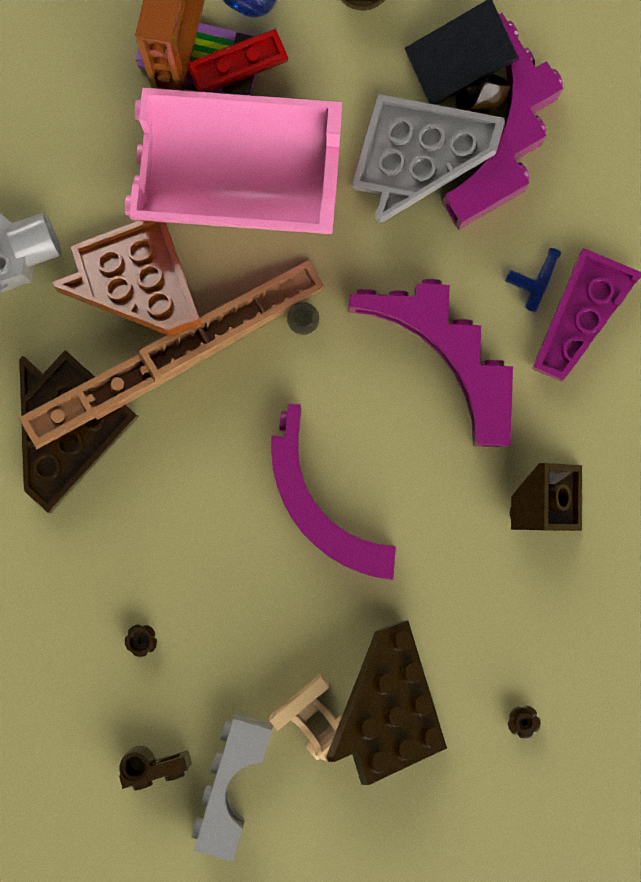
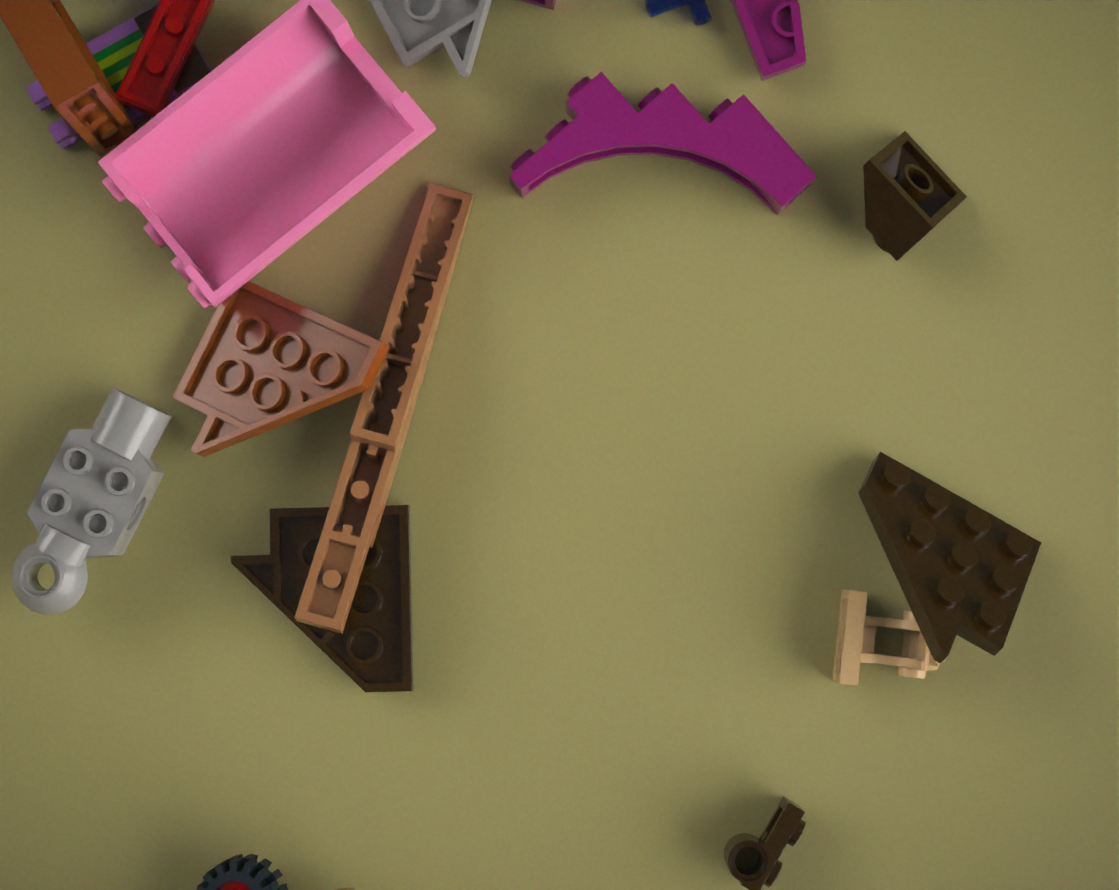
camera: 45 degrees left, 0 degrees up
(141, 649) = (617, 730): dark brown plate -> none
(221, 826) = (891, 840): light grey arch -> none
(303, 318) = (482, 247): clear smoke plate -> none
(336, 543) = (683, 441): magenta arch -> none
(520, 713) = (1080, 442): dark brown plate -> none

